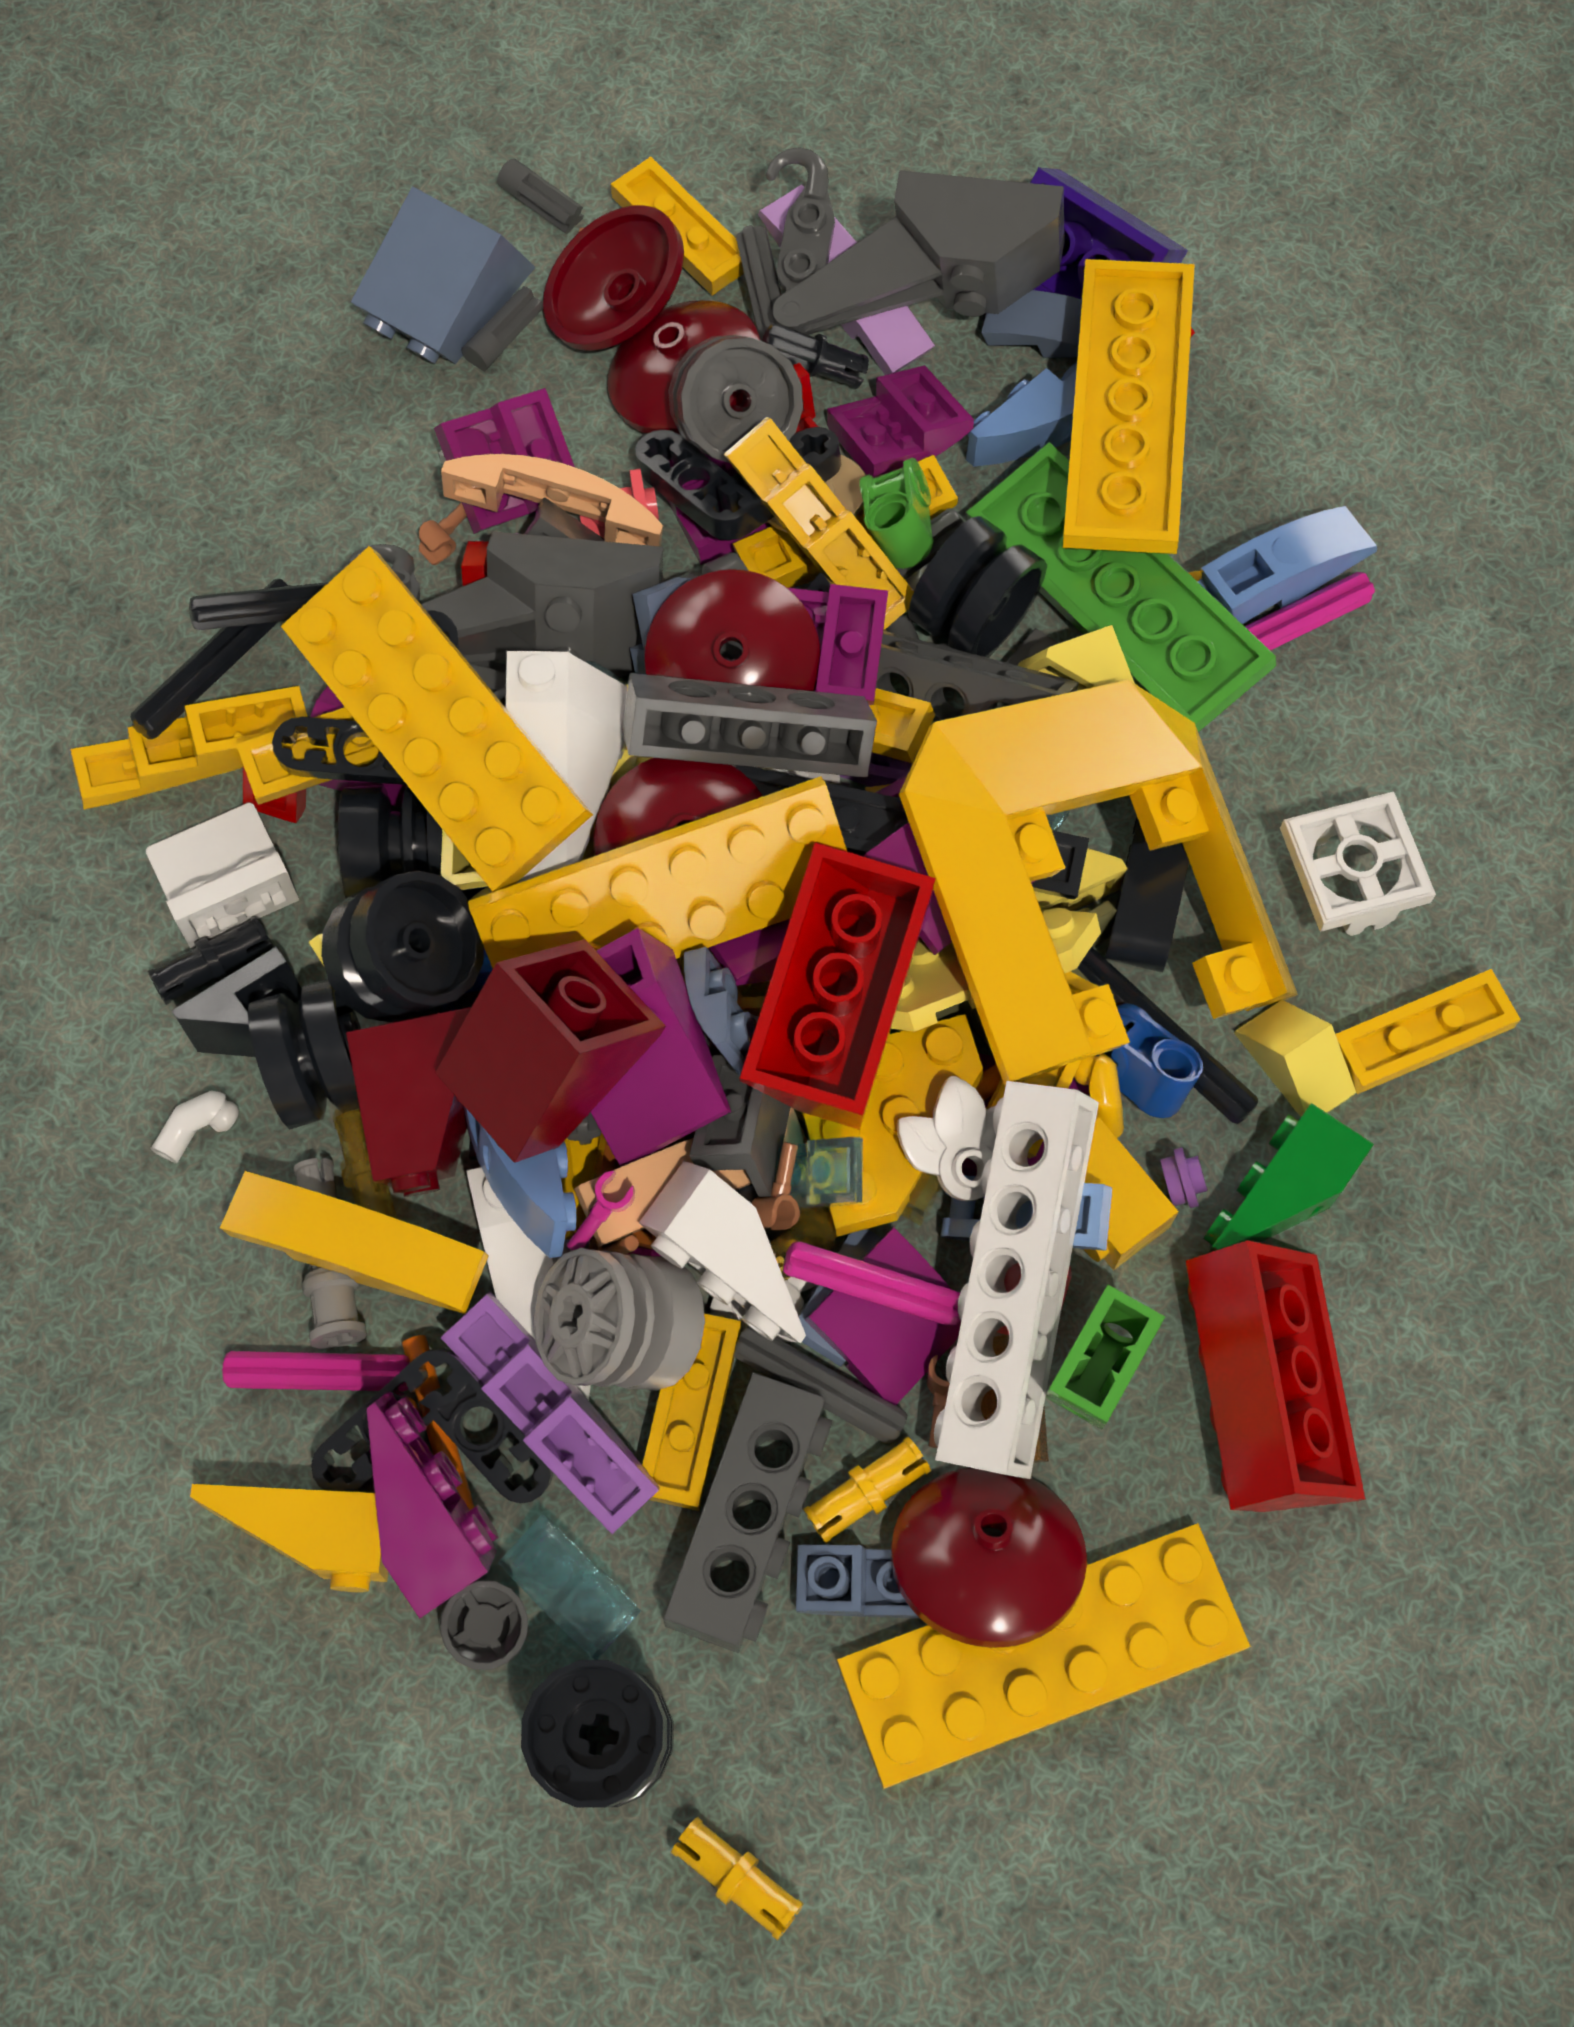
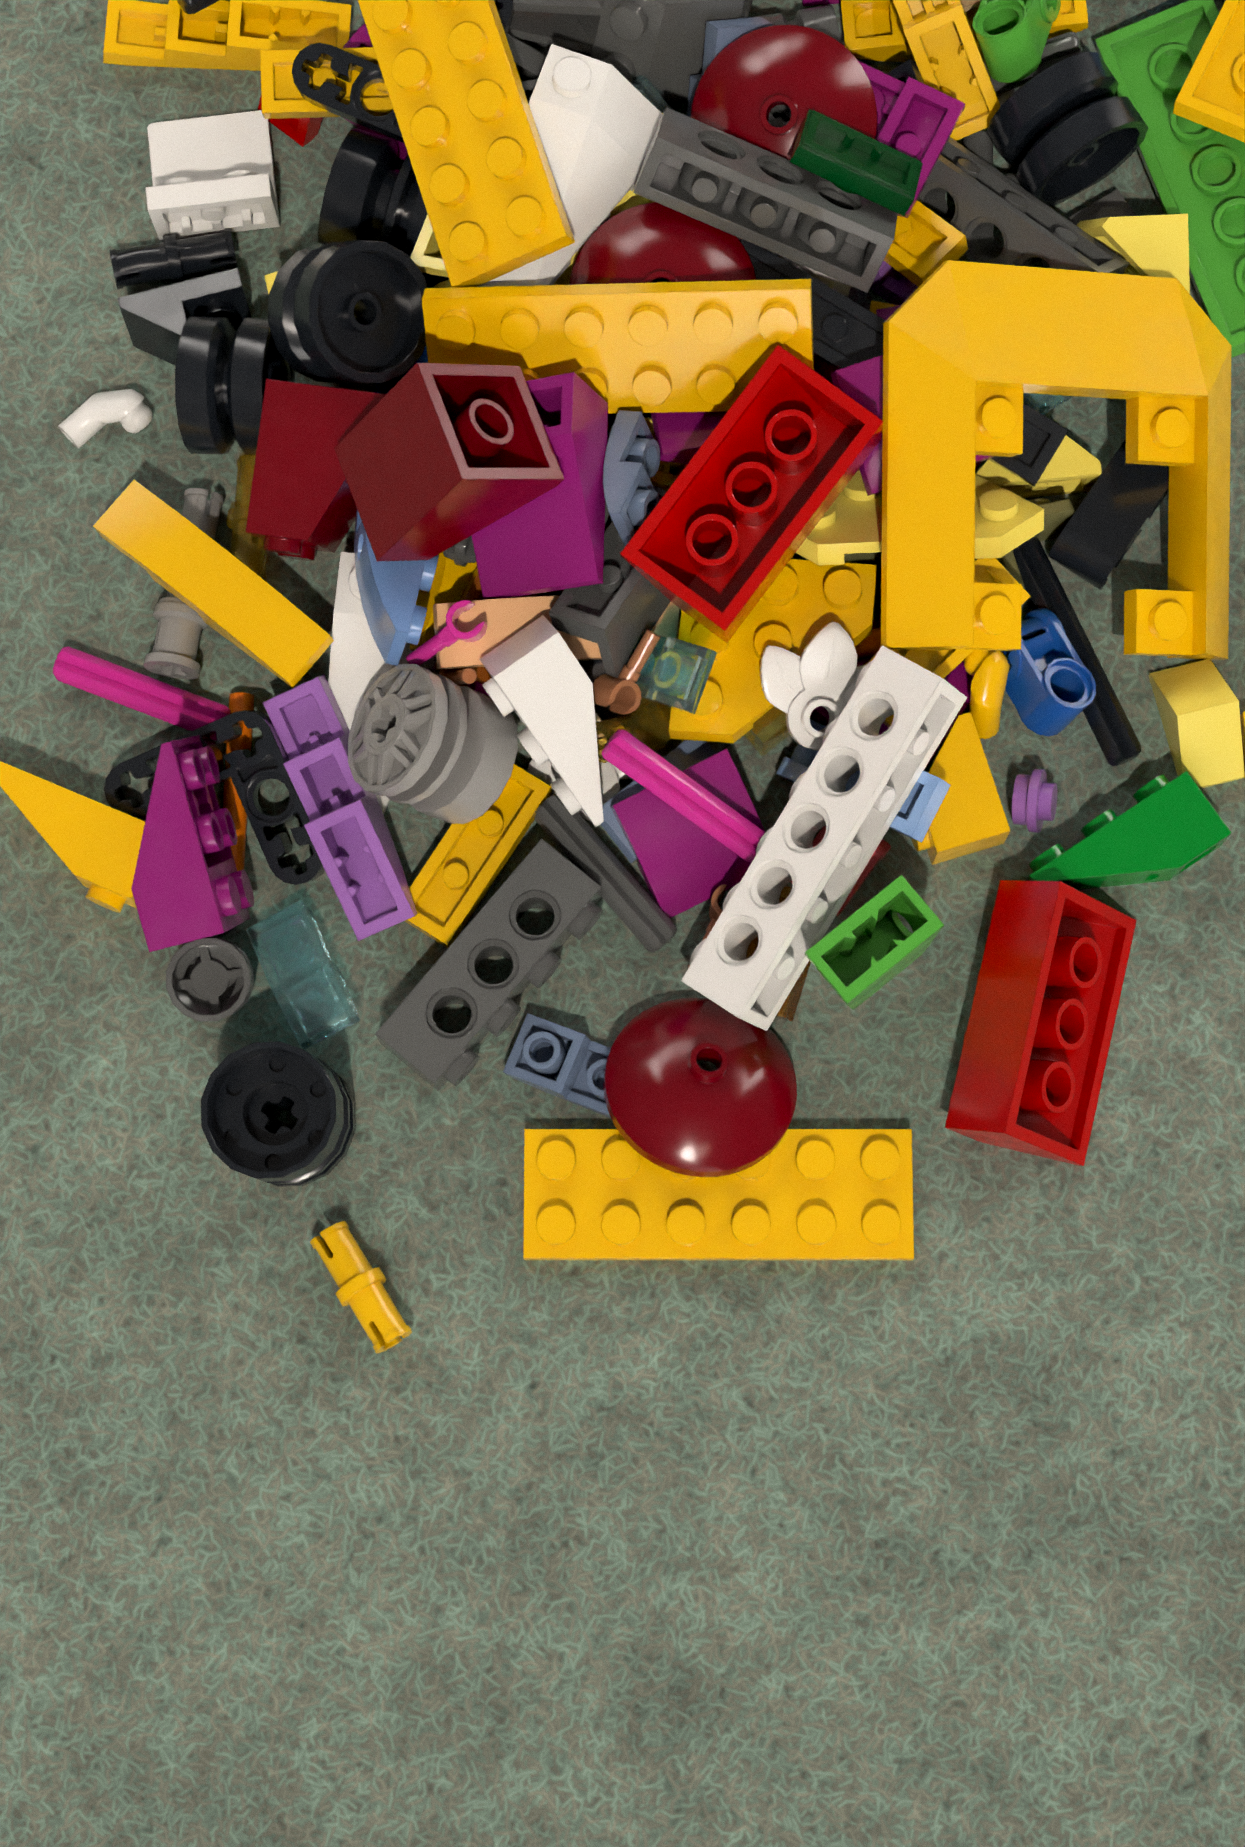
camera: 25 degrees right, 10 degrees up
(816, 668) = (856, 162): none -> dark green plate
(867, 1489) = (611, 986): yellow pin -> none

